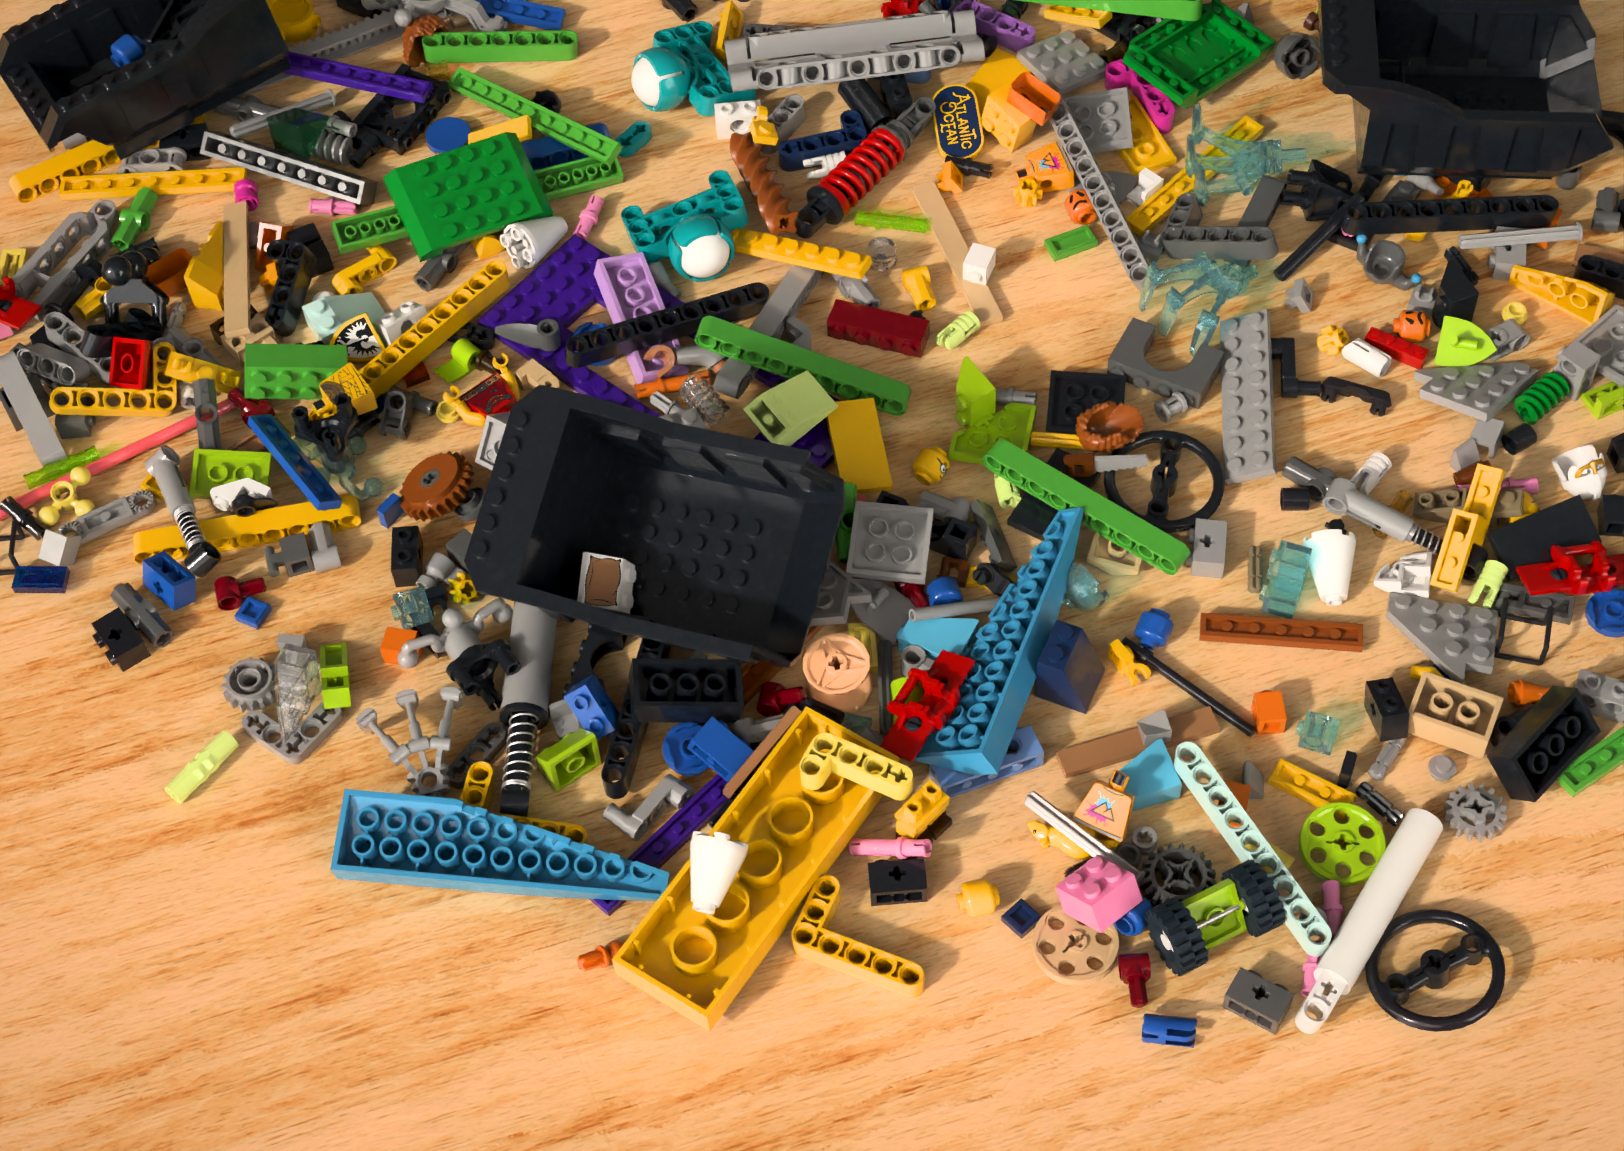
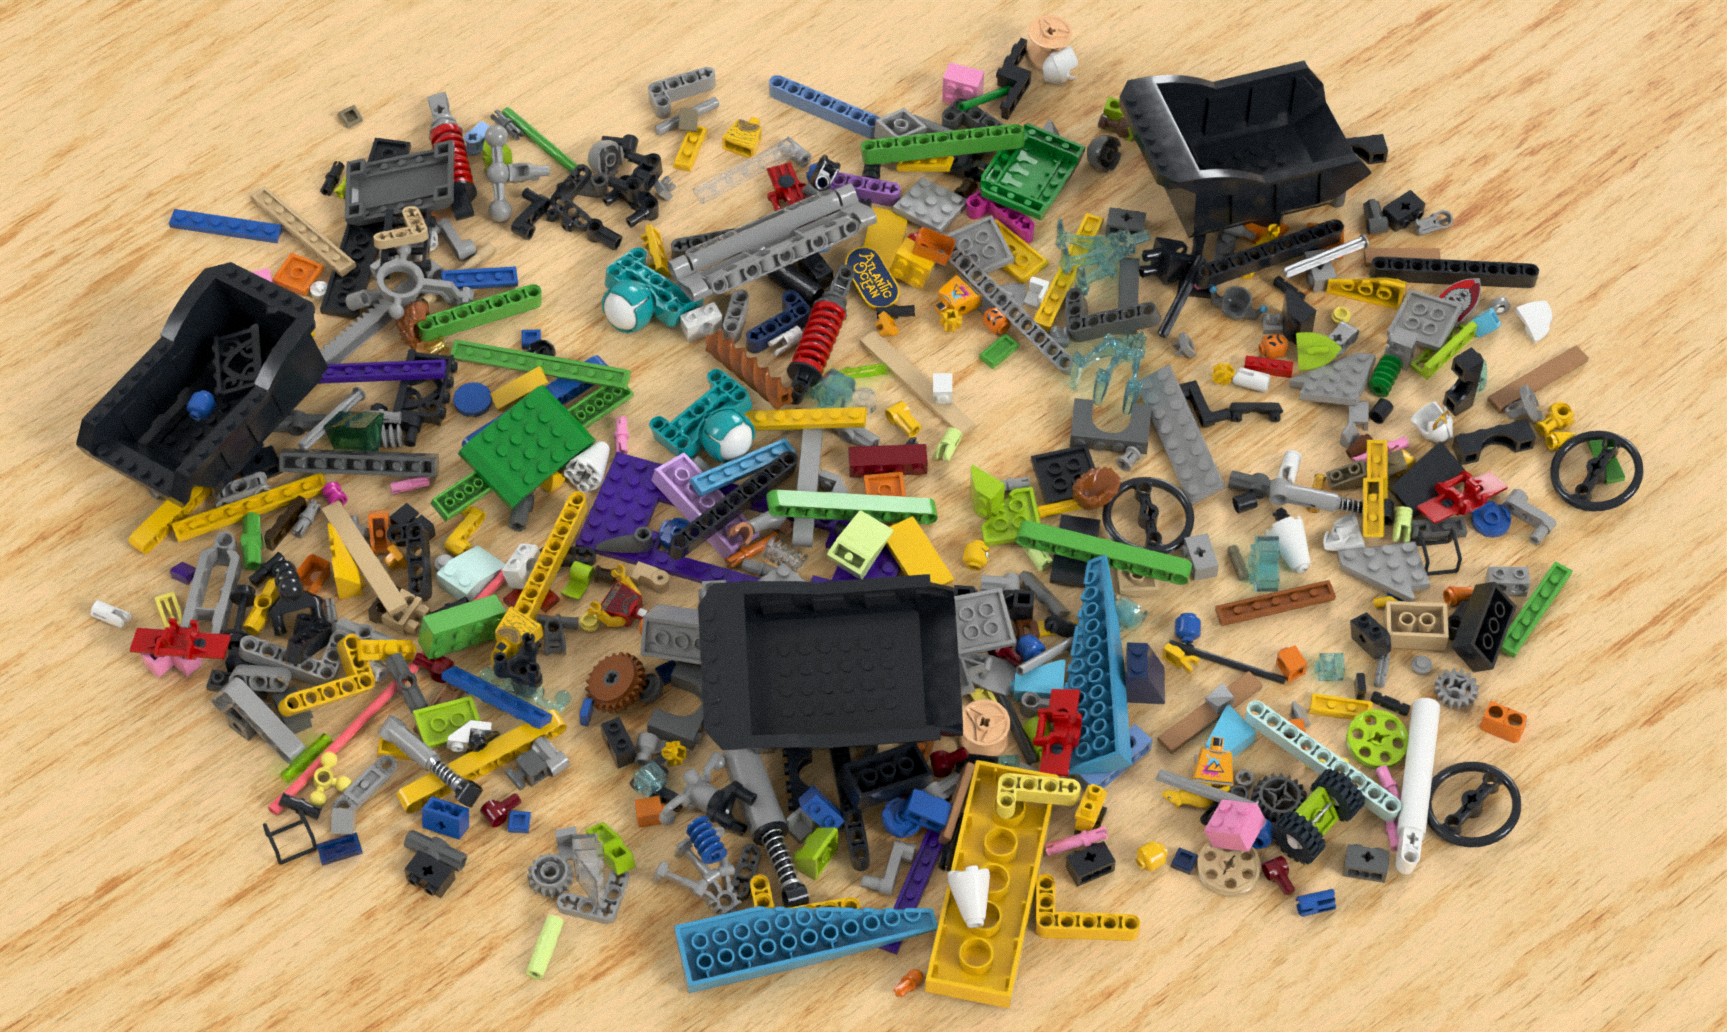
camera: 25 degrees left, 0 degrees up
(44, 229) = (183, 573): none -> dark purple slope
(130, 363) = (331, 659): red slope -> none
(179, 210) = (284, 523): none -> dark brown plate
(204, 212) = (306, 519): none -> light grey pin
(360, 337) = (497, 582): shield -> none
(427, 697) = (706, 840): none -> blue piece
(545, 84) = (530, 336): none -> blue tile
(606, 582) = (796, 714): slope -> none
(634, 140) = (619, 357): teal beam -> none
(694, 286) = (738, 468): none -> dark azure plate
(761, 130) = (729, 327): yellow plate -> none
(850, 230) = (834, 390): none -> clear light blue brick
(862, 354) = (885, 484): none -> orange plate
(1091, 464) = (1092, 520): piece -> none
(1291, 135) = (1121, 219): none -> dark grey brick
(1522, 888) = (1507, 731): none -> orange piece

